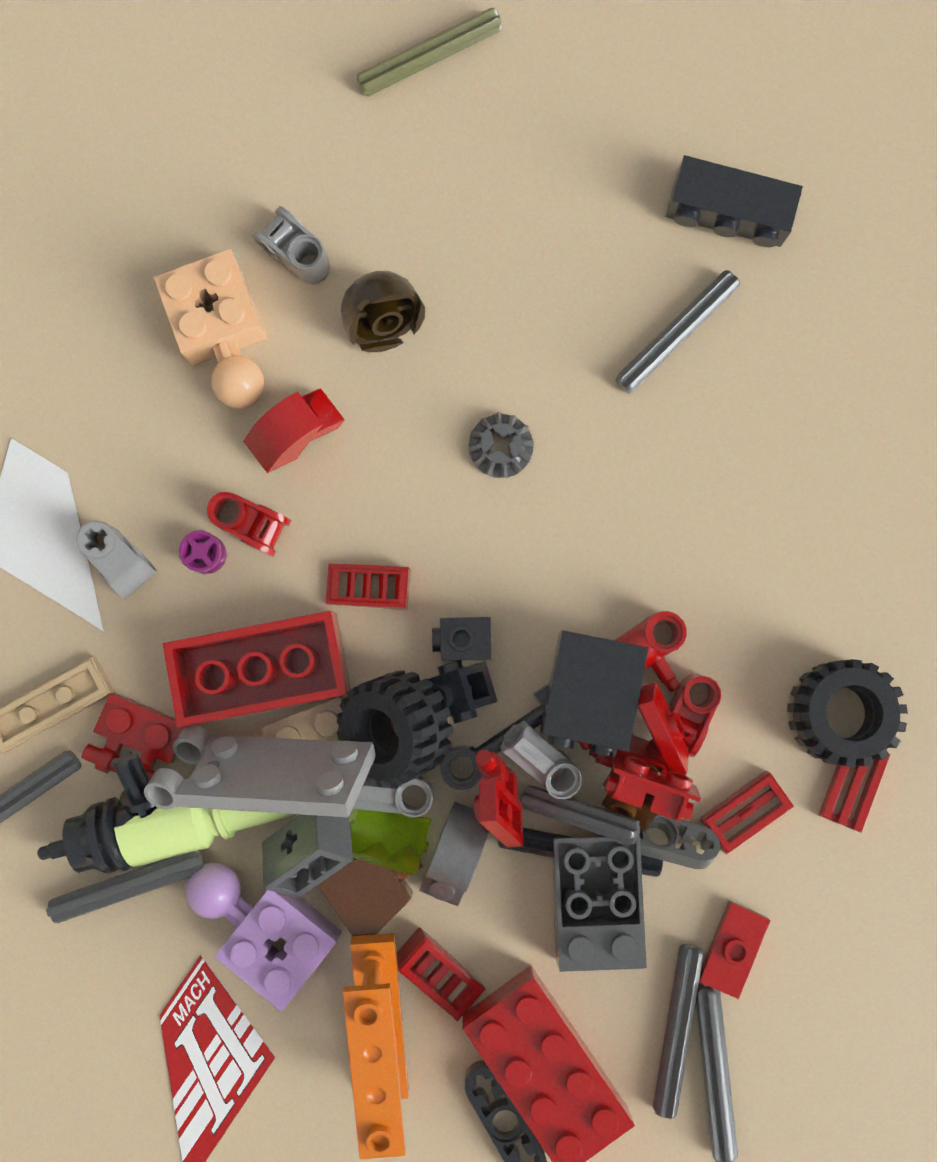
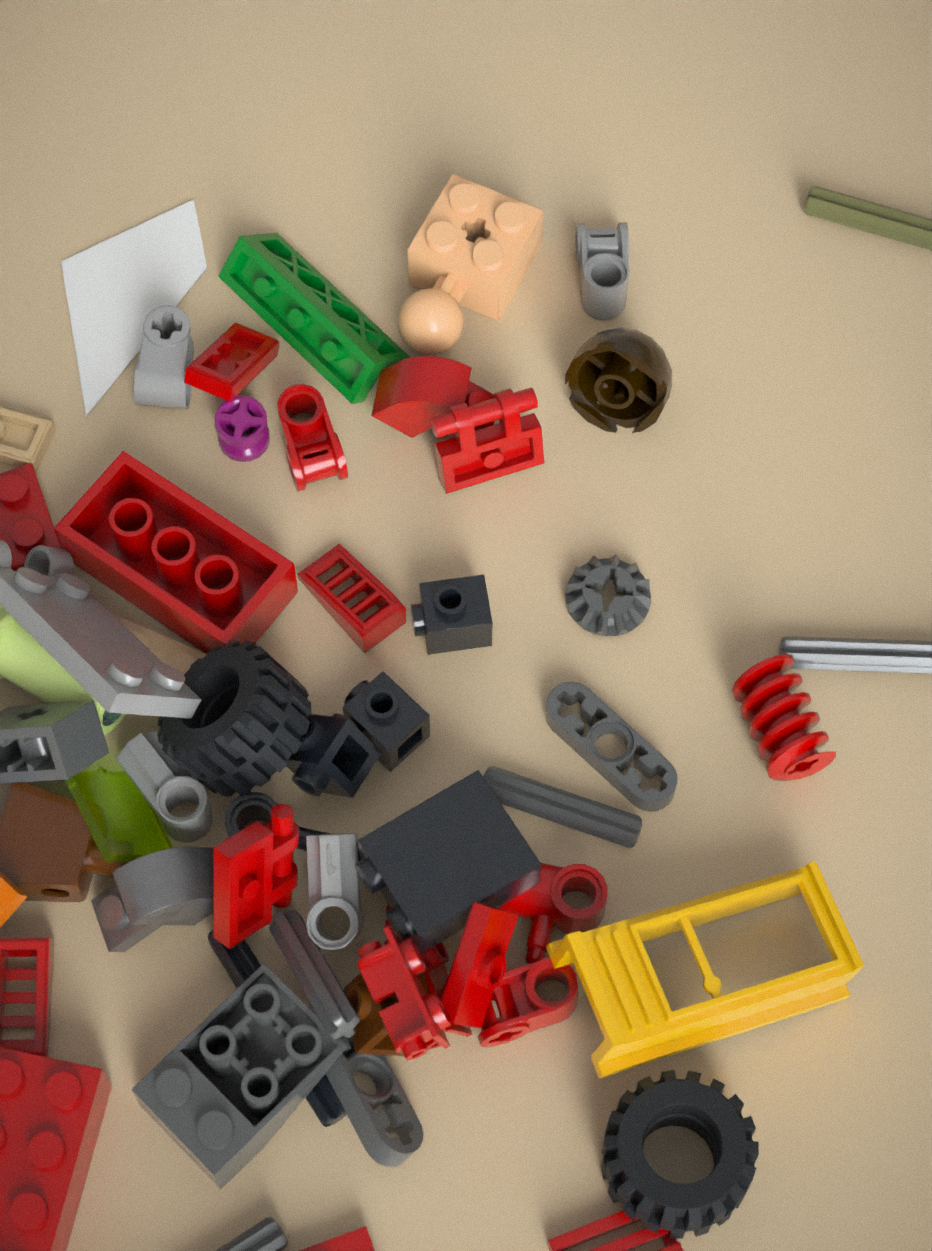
camera: 45 degrees right, 20 degrees down
(154, 521) = (232, 362): none -> red plate
(160, 447) = (310, 314): none -> green fence
(348, 423) = (491, 451): none -> plate
(435, 543) = (453, 614): none -> black brick
(599, 589) = (564, 807): none -> dark grey axle
(620, 538) = (650, 760): none -> dark grey beam
(665, 426) = (778, 721): none -> red piece
(735, 658) = (632, 1003): none -> yellow piece
(737, 798) = (470, 1182): red tile -> none

